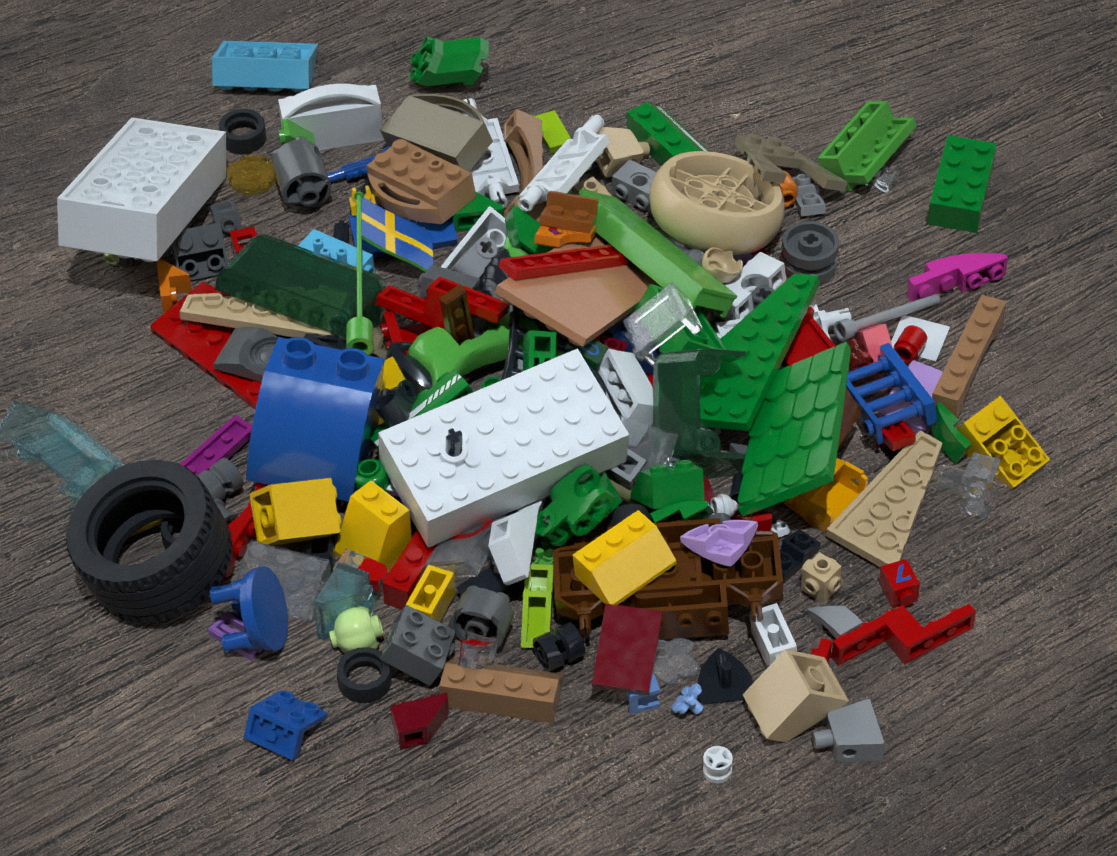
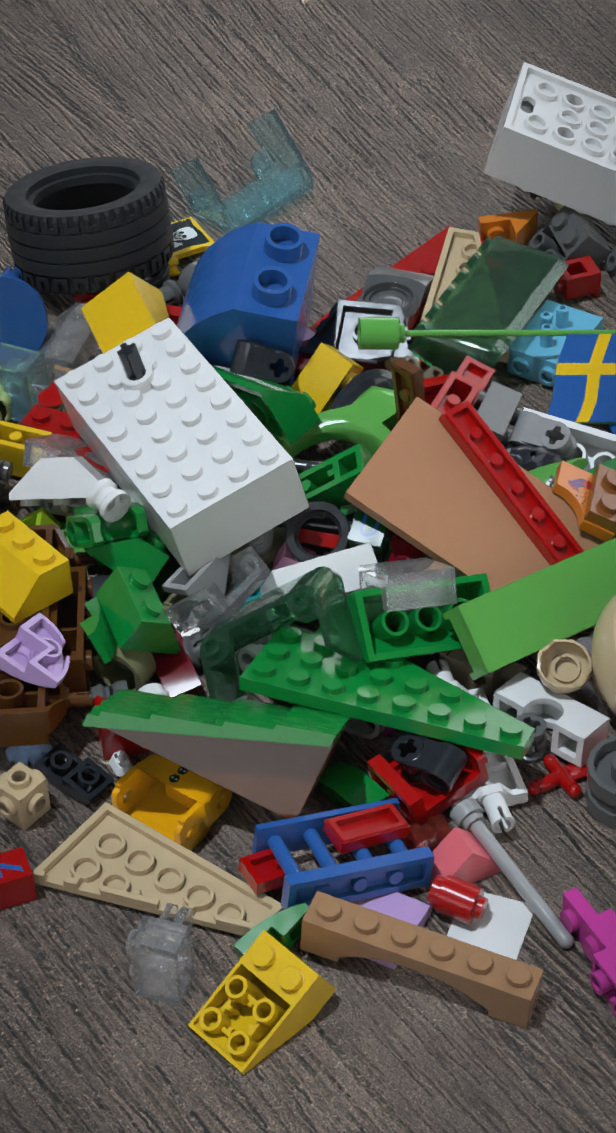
camera: 90 degrees right, 5 degrees down
(580, 481) = (108, 500): none -> white wheel
(809, 338) = (429, 761): none -> black piece
(866, 378) = (366, 828): none -> red tile

